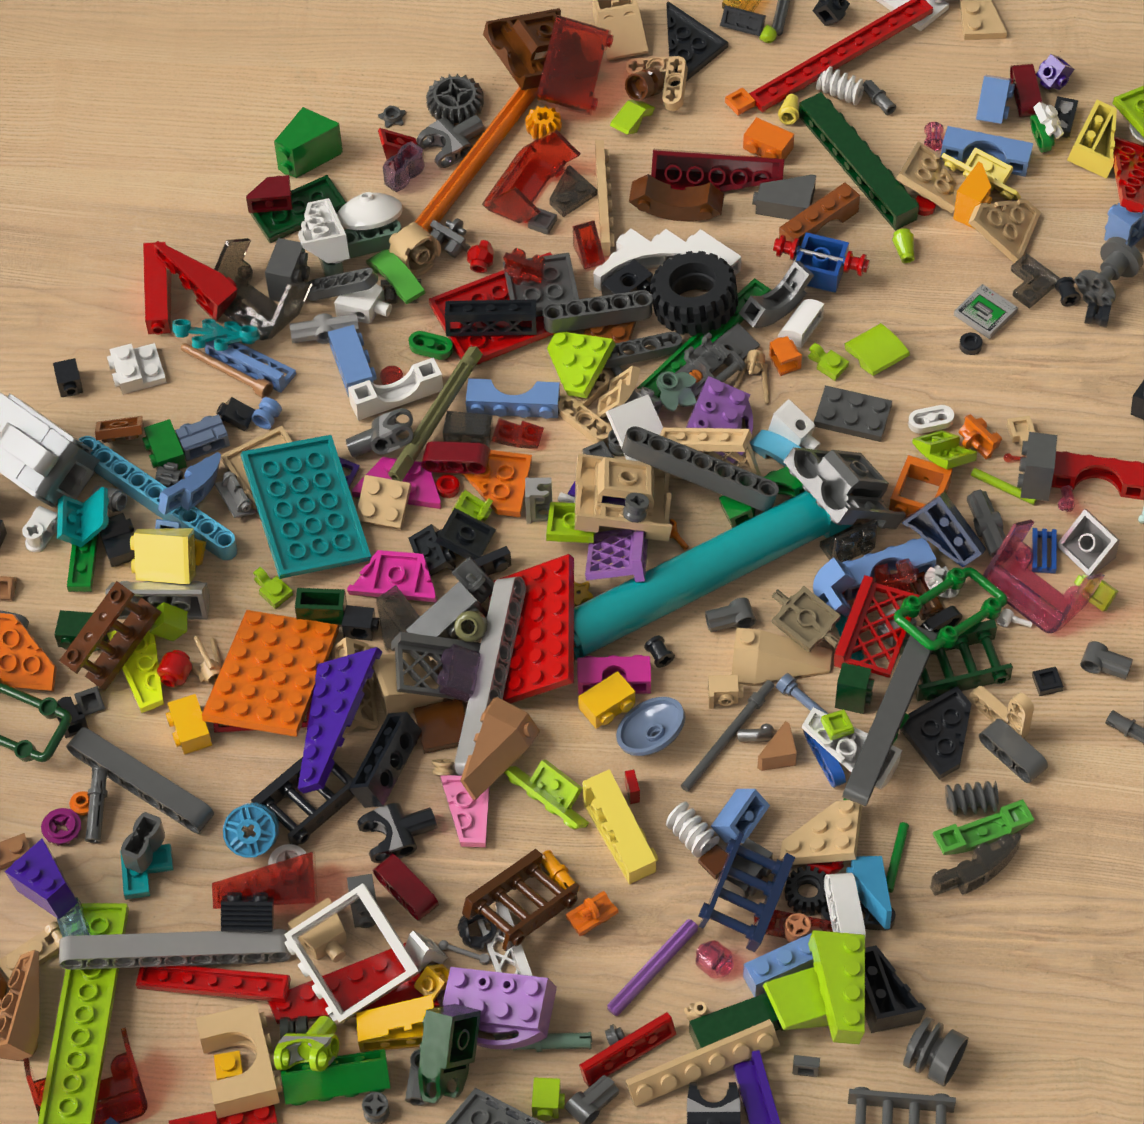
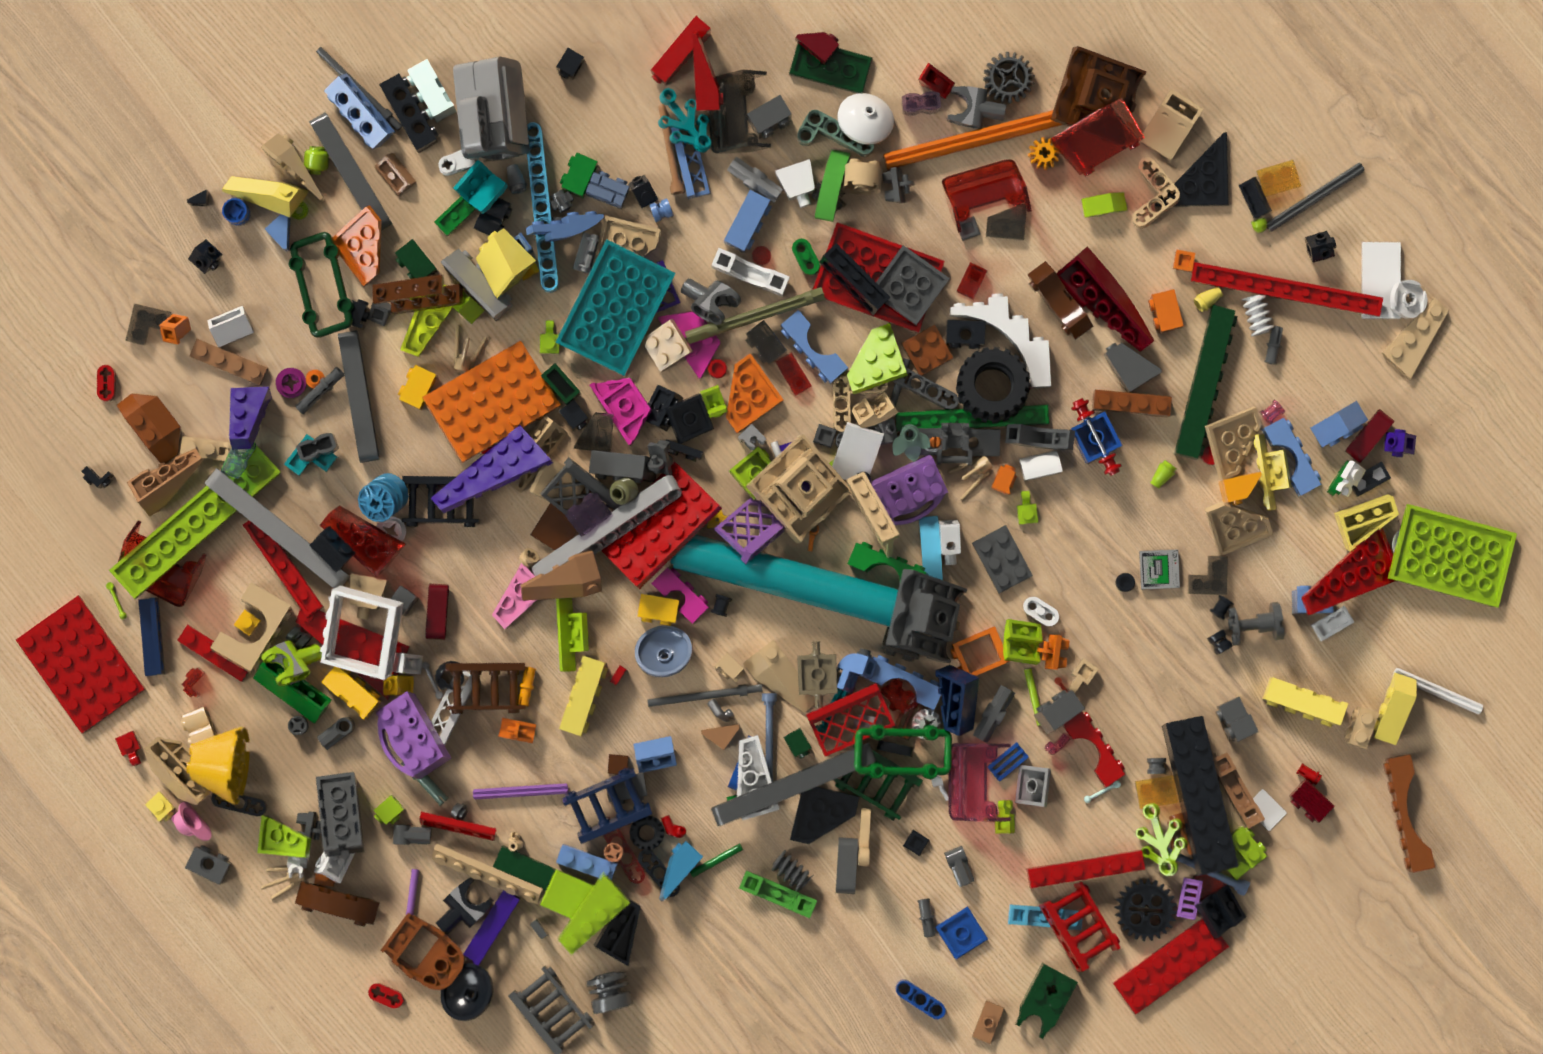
camera: 40 degrees right, 30 degrees up
(116, 428) = (563, 136): dark orange plate -> none
(136, 367) = (618, 95): white plate -> none
(174, 668) = (442, 342): red head -> none
(307, 143) = (877, 24): green slope -> none
(323, 232) = (812, 114): white wedge -> none
(342, 284) = (791, 161): dark grey beam -> none
(385, 759) = (498, 524): black brick -> none
(392, 111) = (955, 48): dark grey plate -> none
(397, 828) = (468, 572): black connector -> none
(447, 1049) = (357, 738): dark green brick -> none
(456, 457) = (734, 360): dark red beam -> none
(480, 256) = (901, 220): red rock -> none
(522, 268) = (911, 273): clear red hips -> none
(597, 311) = (928, 347): dark grey beam -> none
(604, 204) = (1015, 257): tan plate -> none
(635, 507) = (786, 514): dark grey wheel -> none
(644, 84) = (1134, 190): reddish brown wheel -> none
(690, 830) = (621, 734): white piece -> none
(700, 468) = (861, 528): dark grey beam -> none
(714, 959) = (555, 821): clear pink head -> none
(737, 614) = (787, 625): dark grey piece -> none
(826, 837) = (686, 812): tan plate -> none
(837, 724) = (758, 760): lime tile -> none
(844, 903) = (649, 867): white beam -> none
(877, 349) = (1064, 530): lime slope -> none
(985, 864) = (759, 915): clear smoke slope -> none

